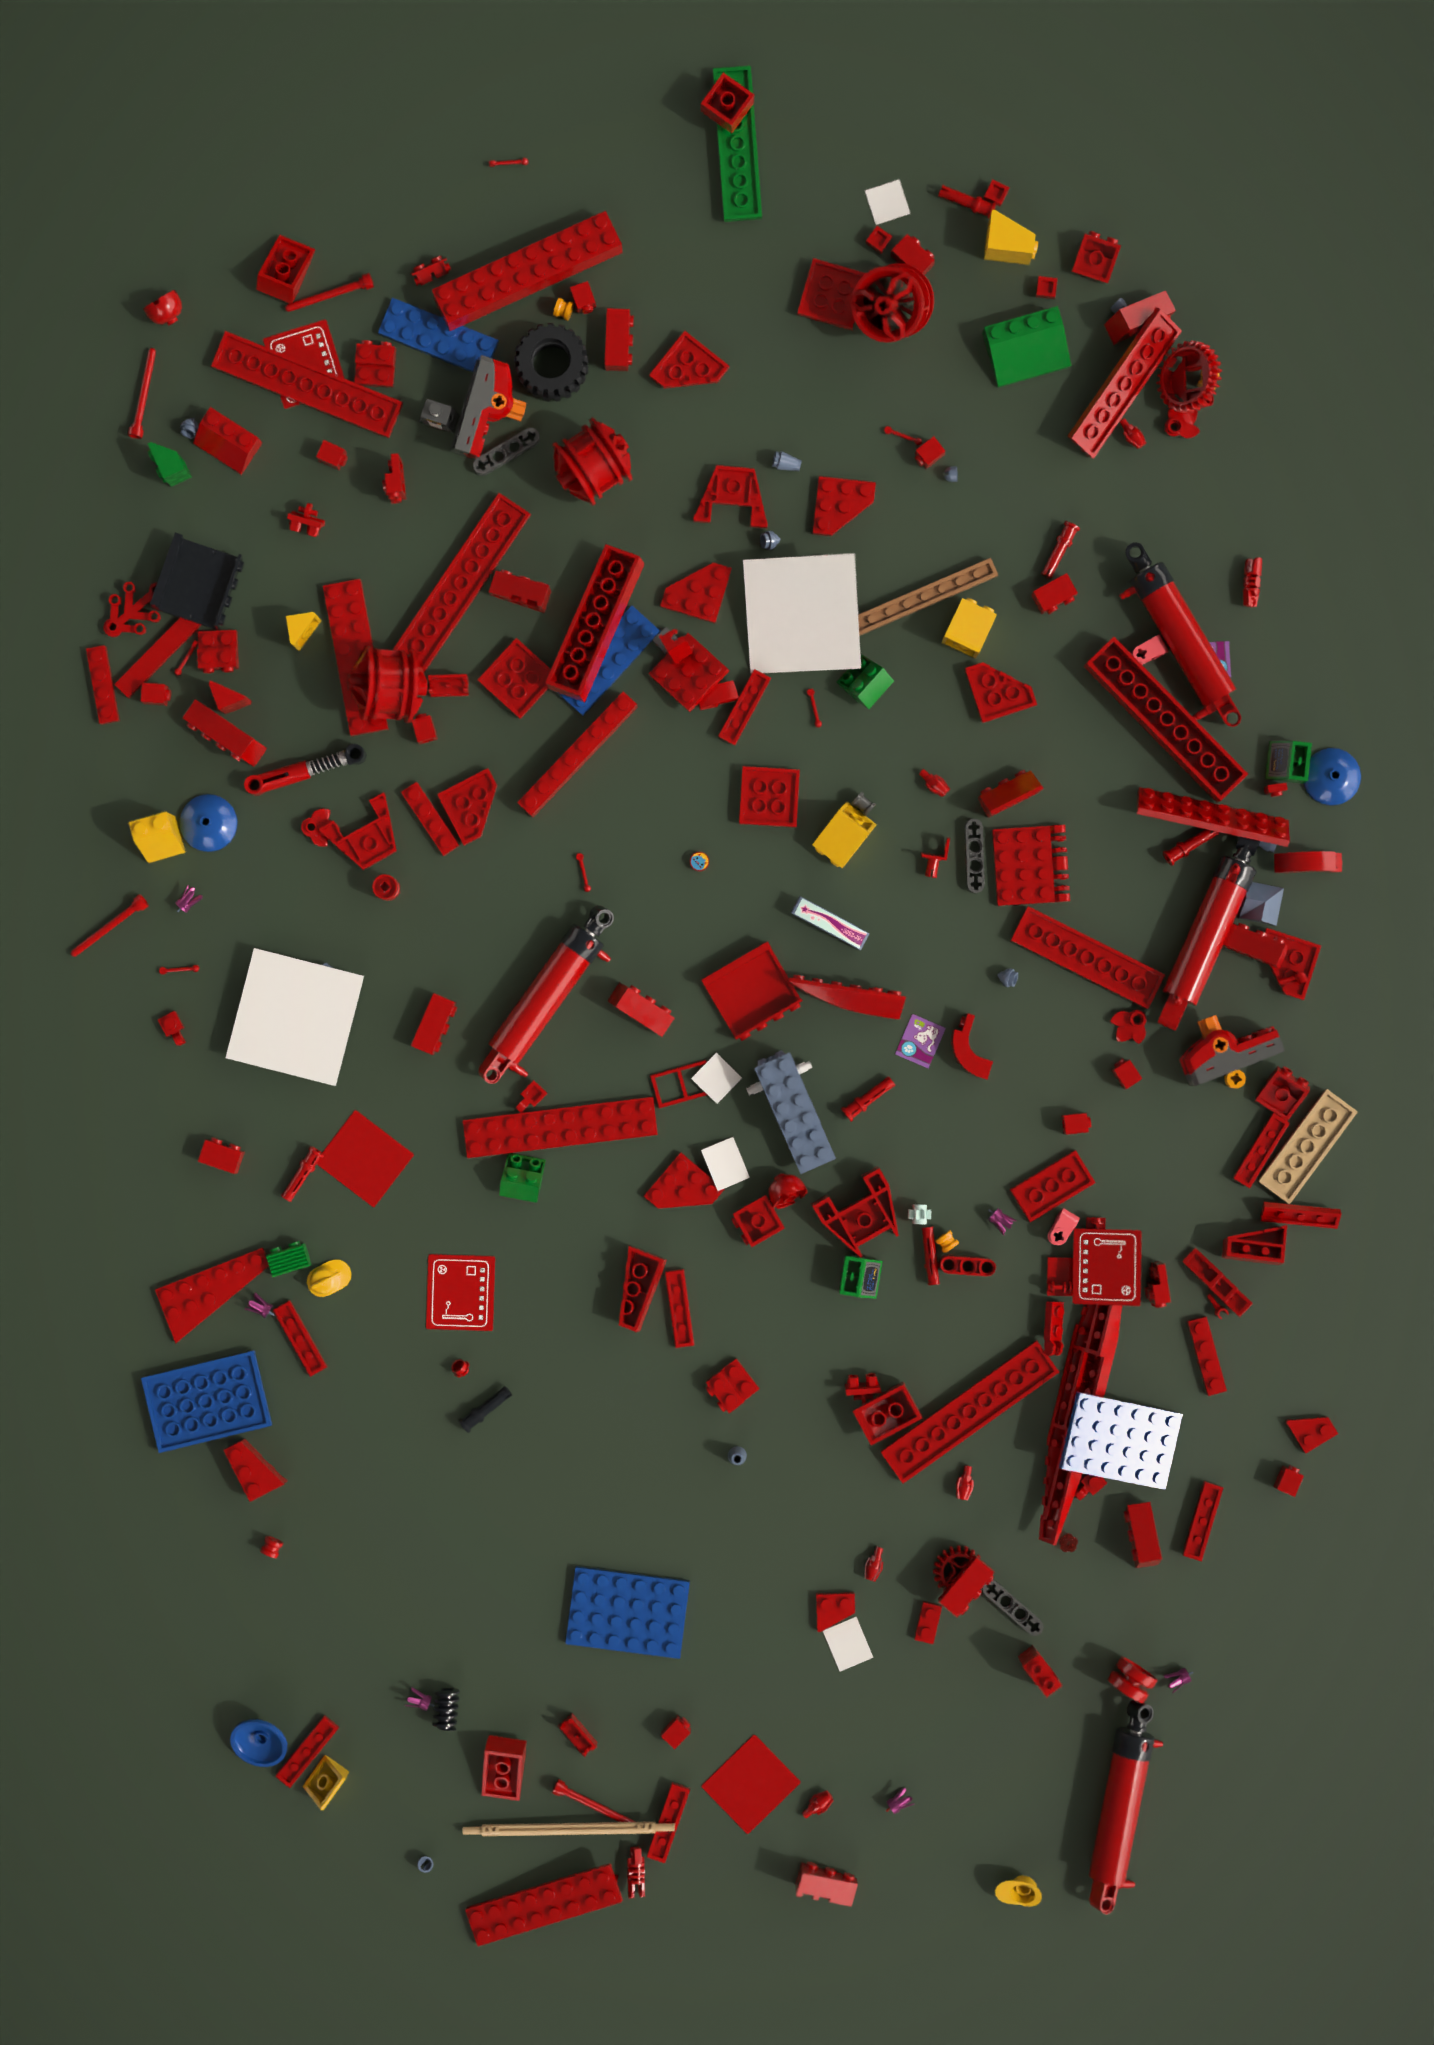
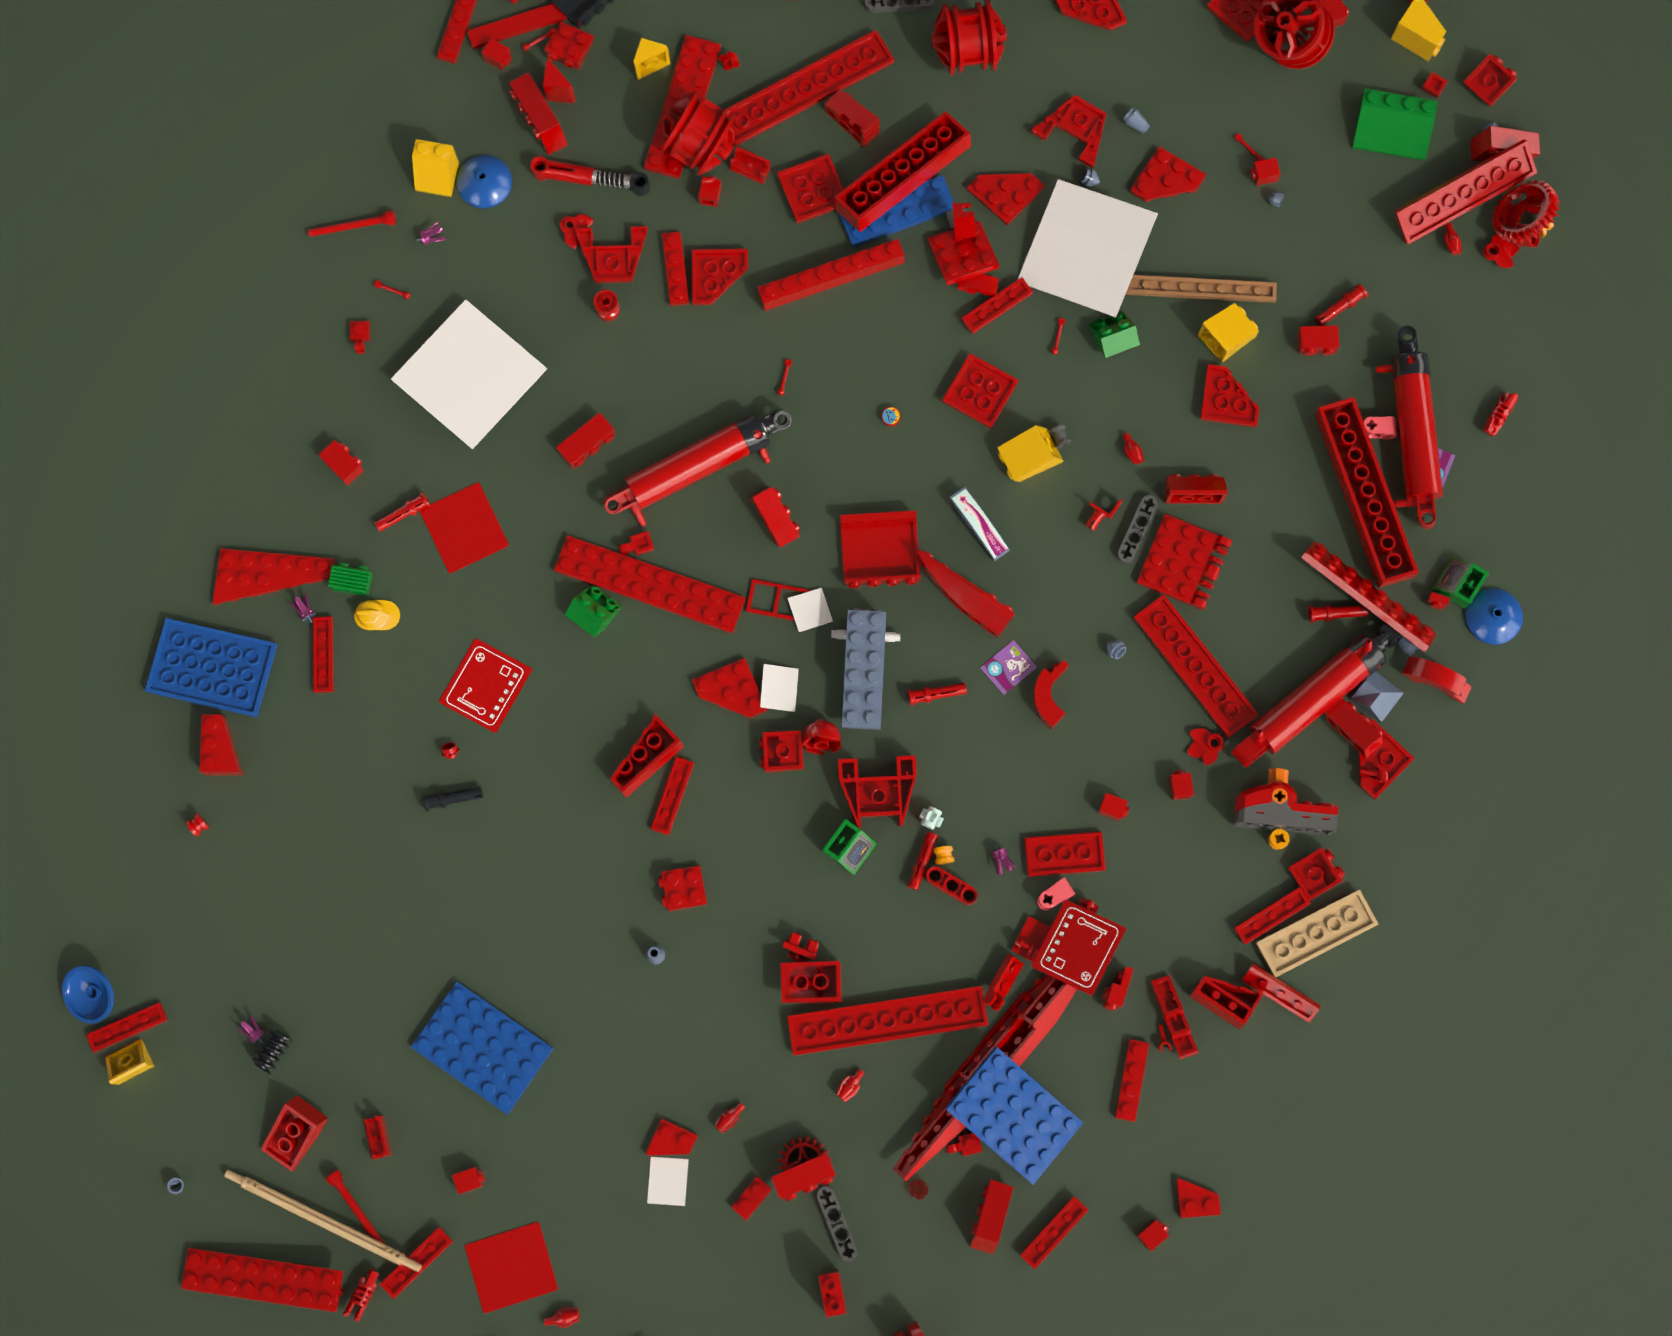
camera: 25 degrees right, 10 degrees down
(376, 591) = (732, 57): none -> red plate

